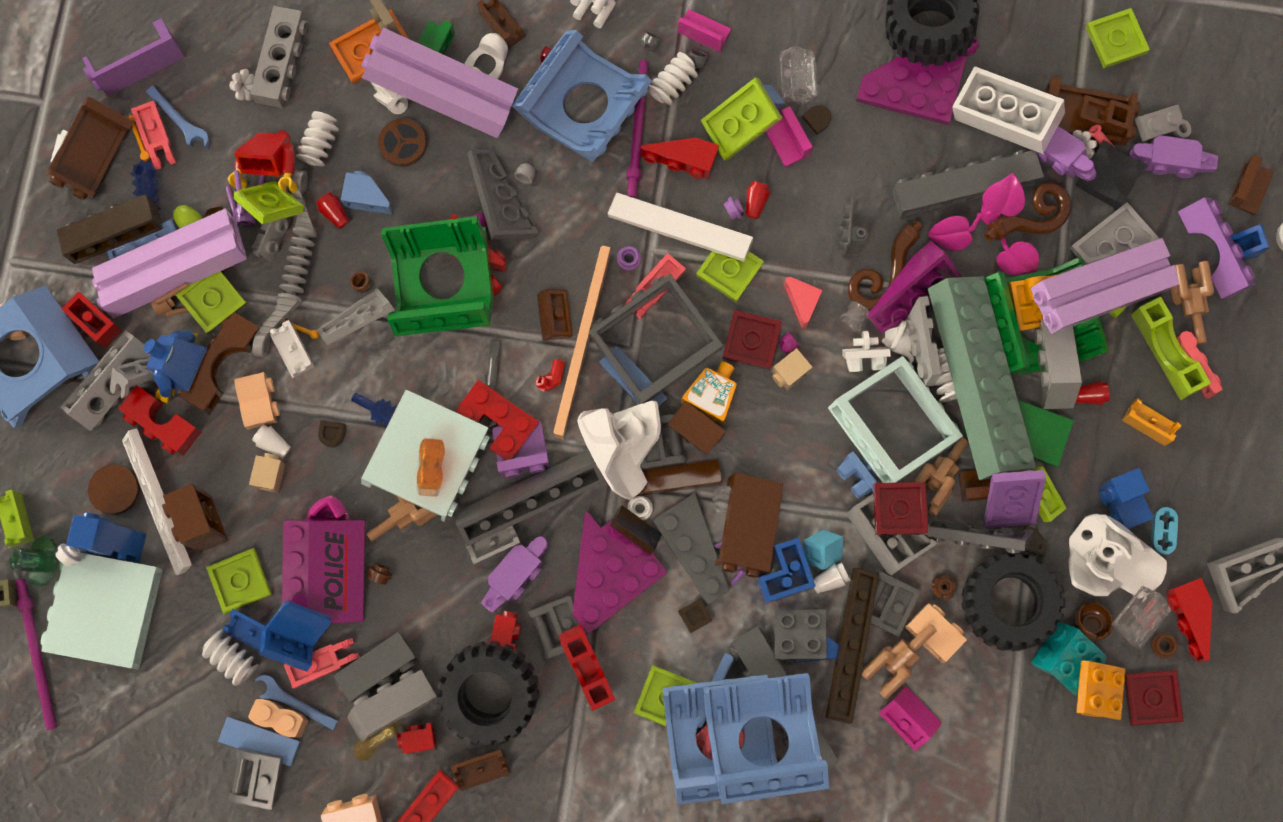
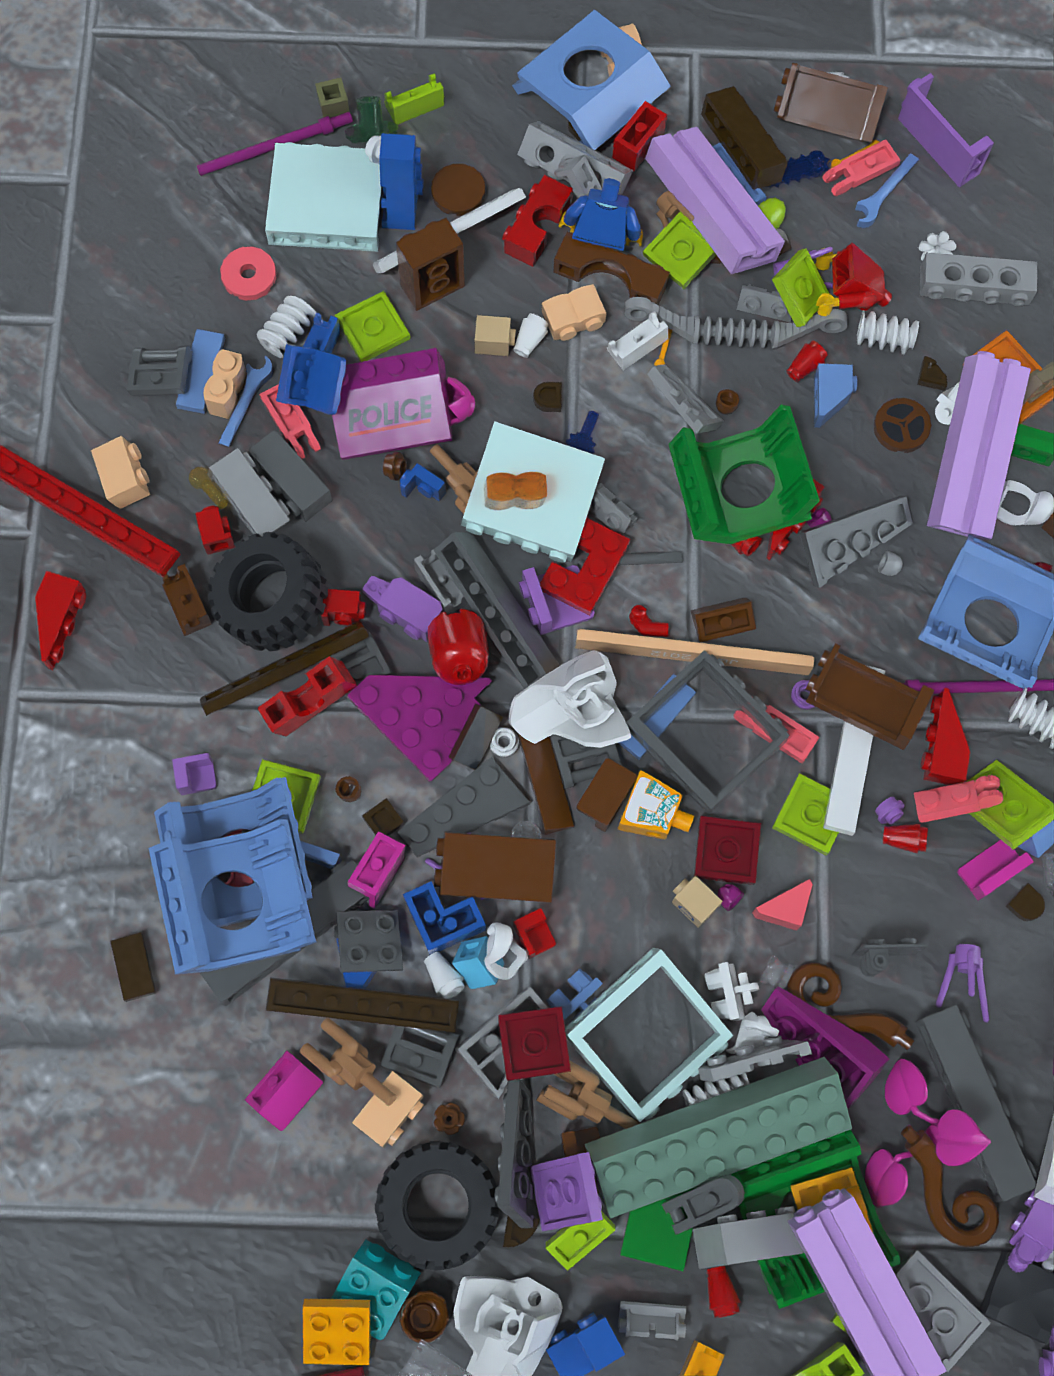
camera: 80 degrees right, 5 degrees down
(152, 686) = (244, 259): none -> coral tile
(359, 110) = (932, 375): none -> dark brown tile
(400, 546) = (426, 483): none -> blue bracket
(452, 388) = (616, 516): none -> light grey hinge
(554, 687) = (283, 667): none -> dark brown tile
(559, 534) = (458, 647): none -> red cylinder
(639, 772) = (194, 774): none -> medium lavender panel
(642, 208) = (867, 698): none -> reddish brown panel
(664, 645) = (345, 786): none -> reddish brown hinge
(732, 155) = (958, 799): none -> coral hinge
(739, 622) = (377, 868): none -> dark pink panel
(803, 502) = (534, 933): none -> red panel
(816, 529) = (498, 944): none -> white piece
(858, 170) = (969, 961): none -> medium lavender plant
(1030, 394) = (705, 1202): none -> dark grey plate
(1106, 459) = (638, 1318): none -> light grey hinge

